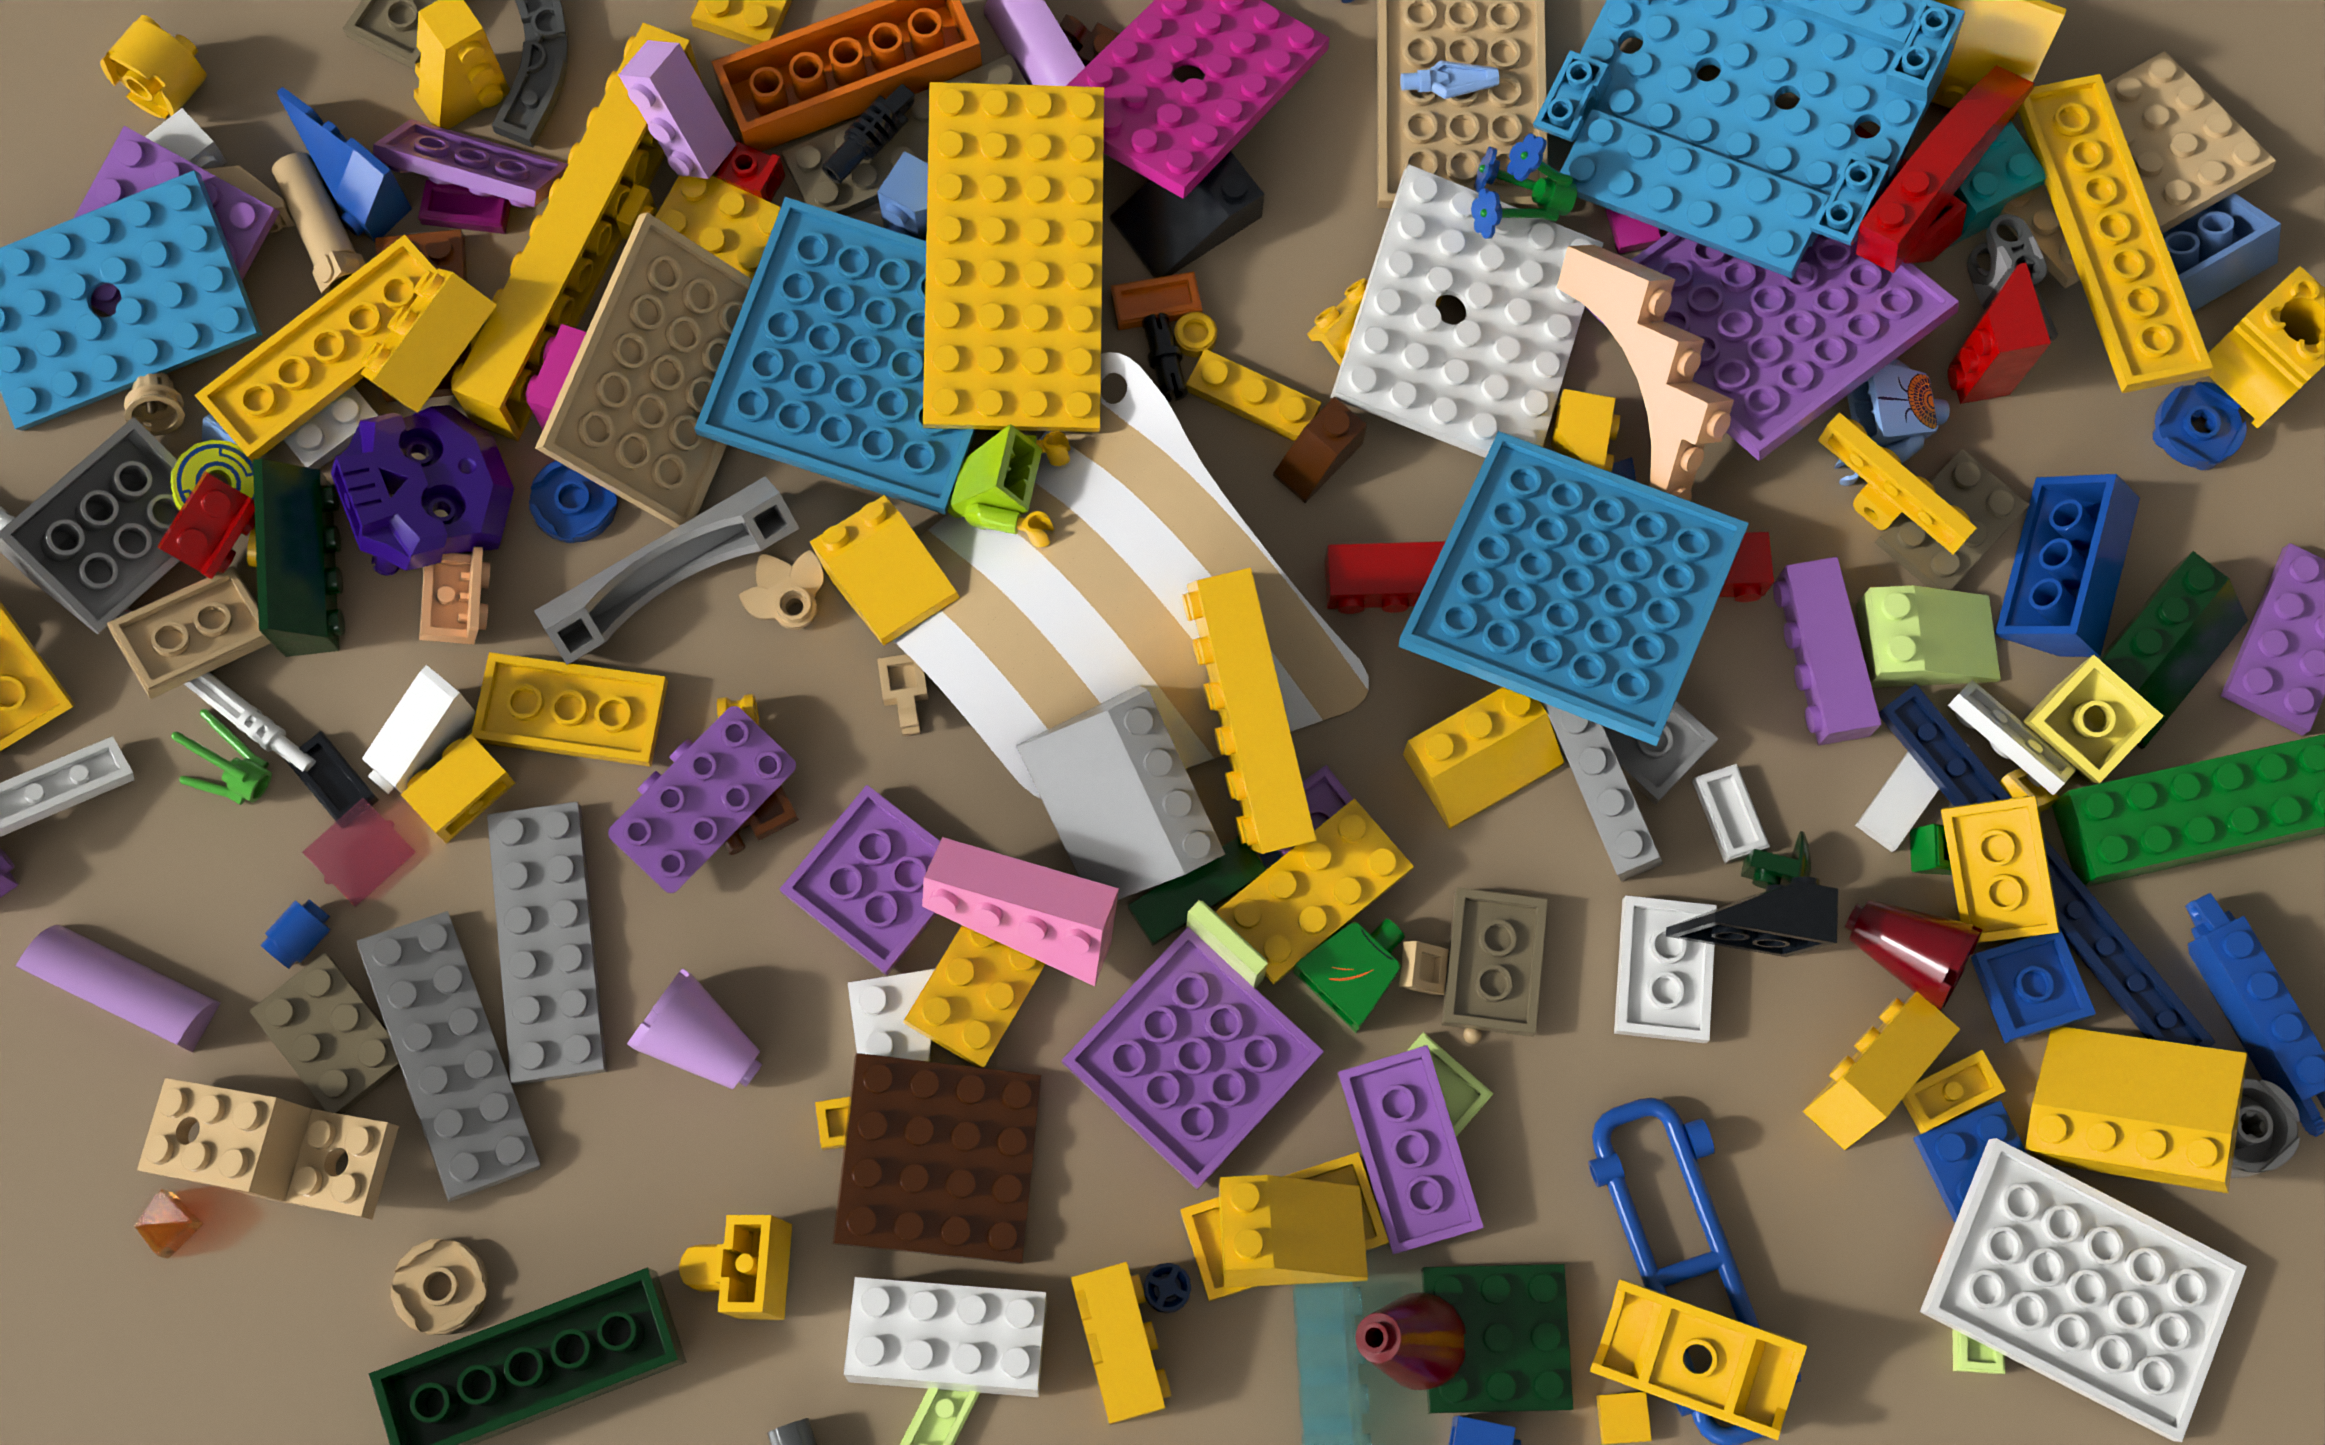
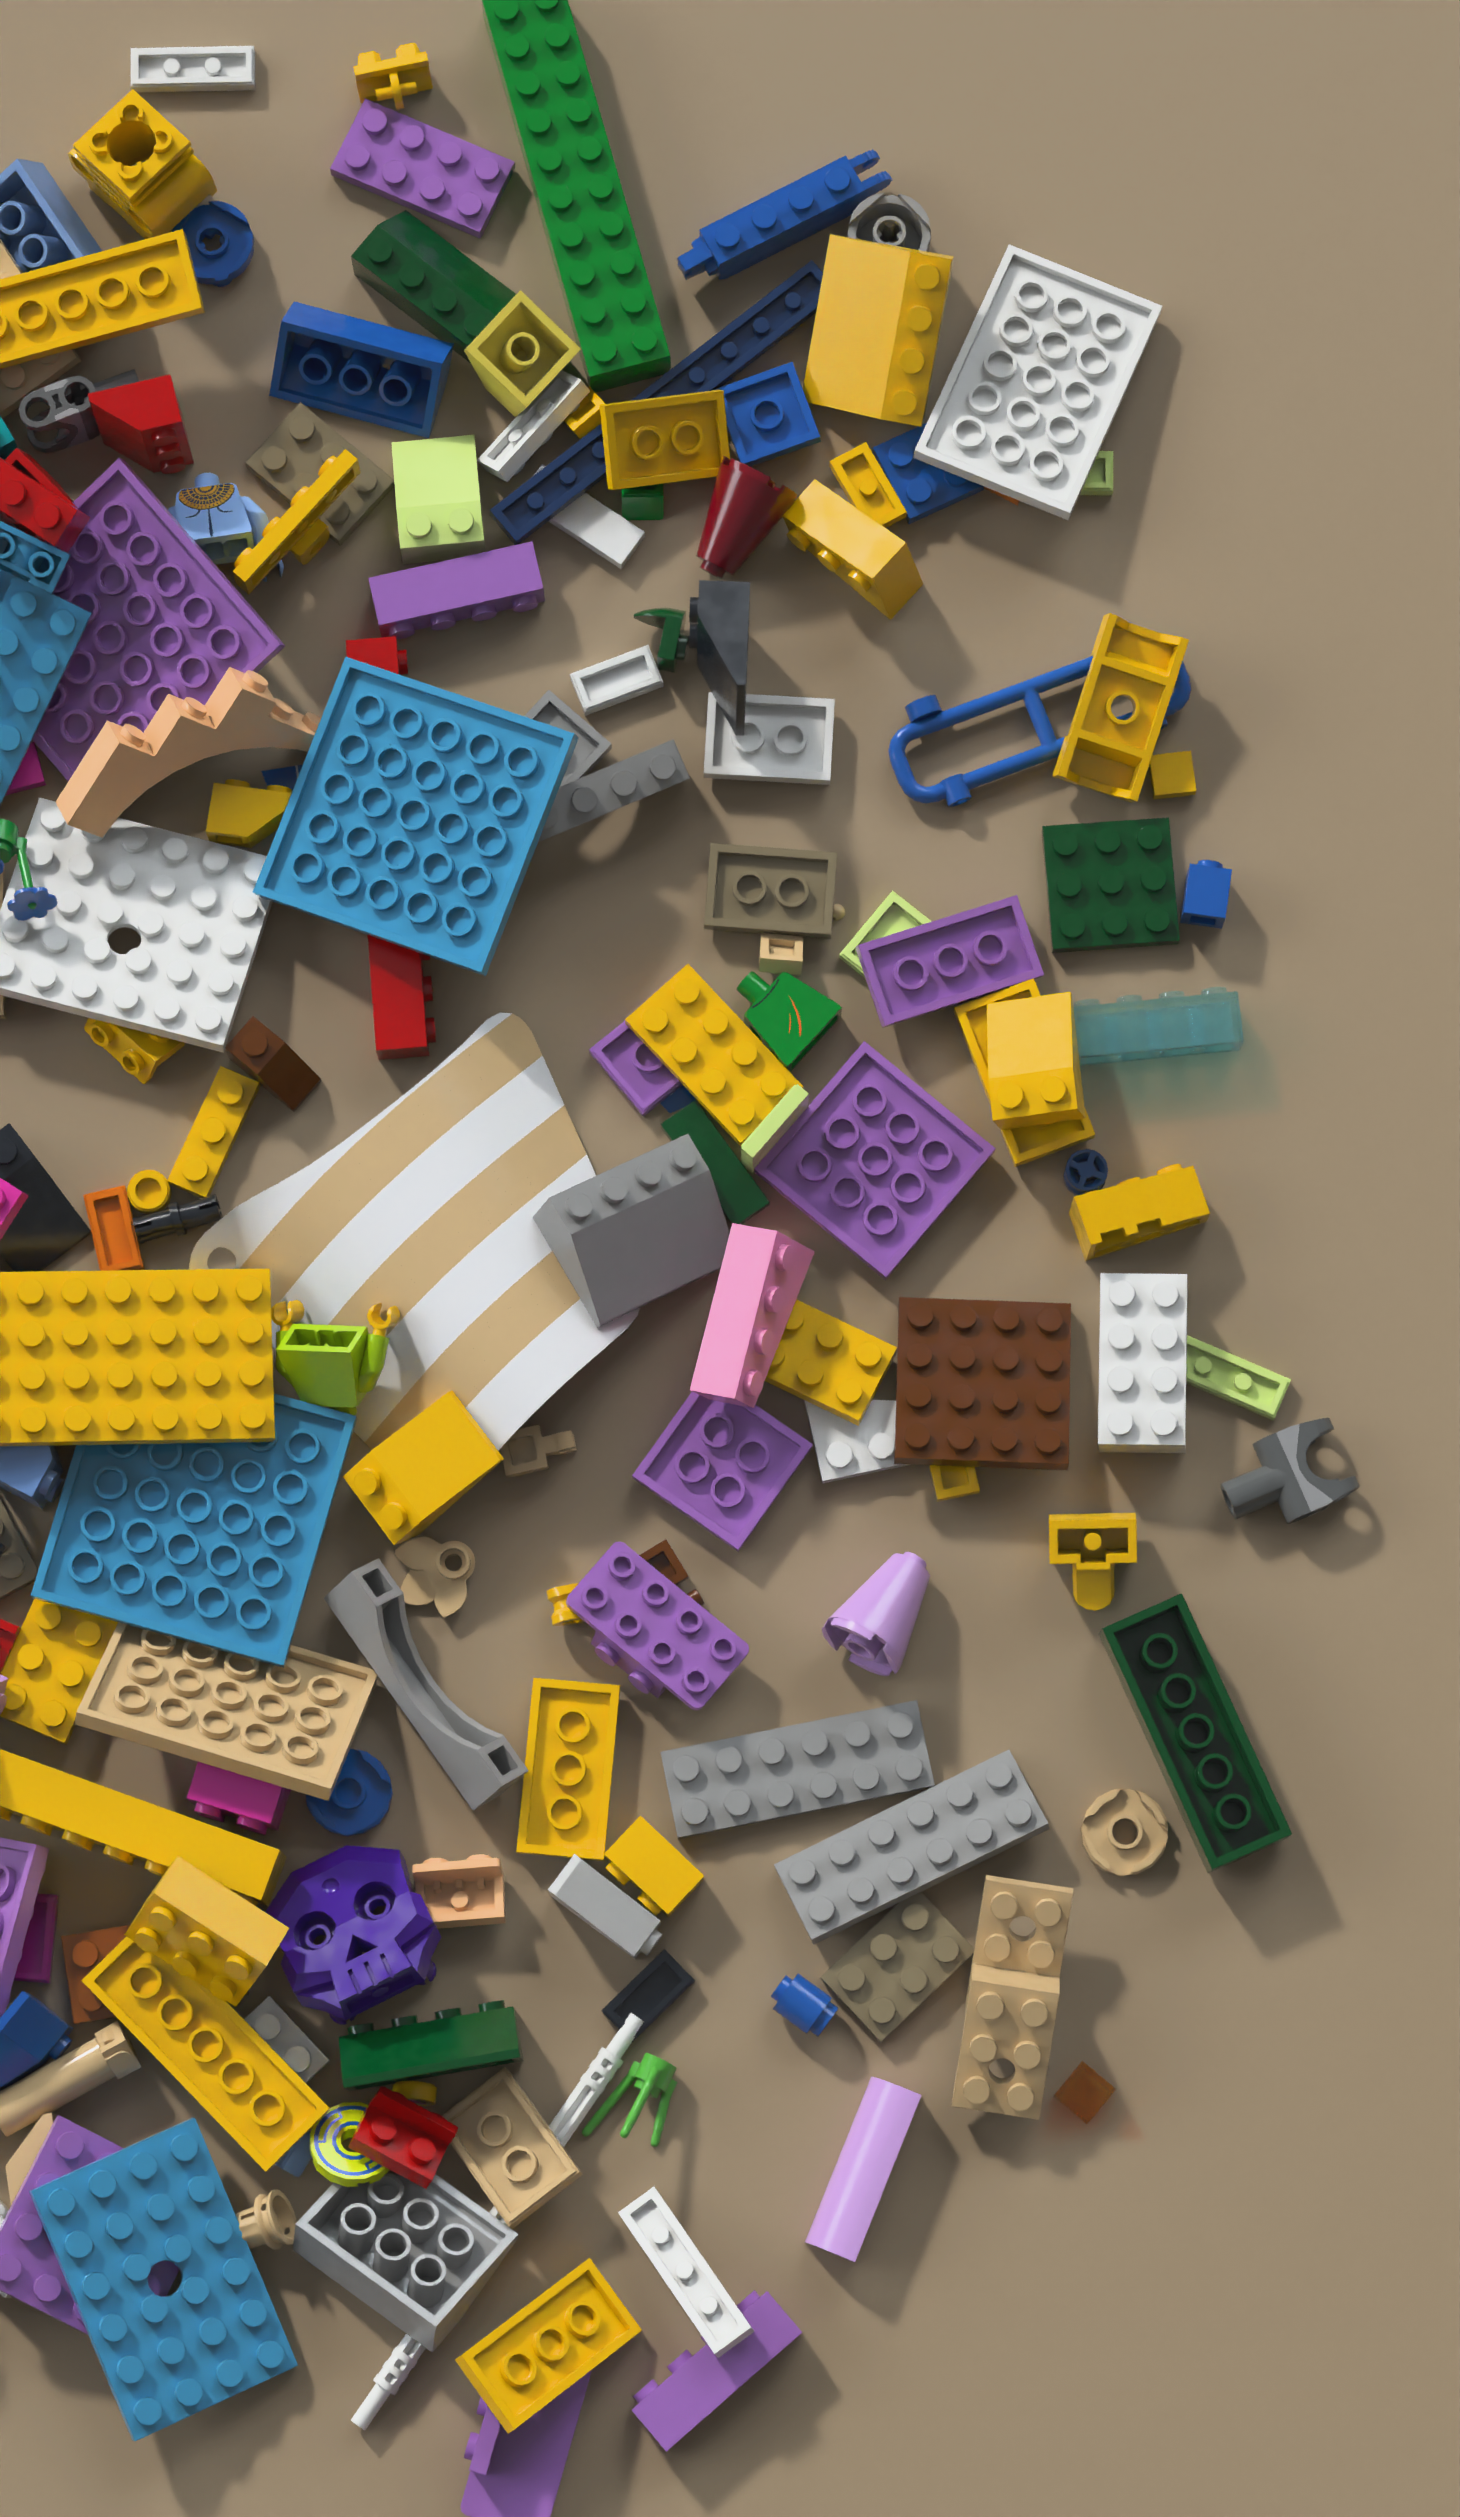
camera: 90 degrees left, 5 degrees up
(359, 852) = (720, 1957): clear pink piece -> none
(637, 202) = (41, 1751): yellow plate -> none
(1249, 711) = (559, 1108): yellow brick -> none
(1414, 1340) = (1119, 949): dark red cone -> none
(1483, 754) = (575, 906): yellow slope -> none

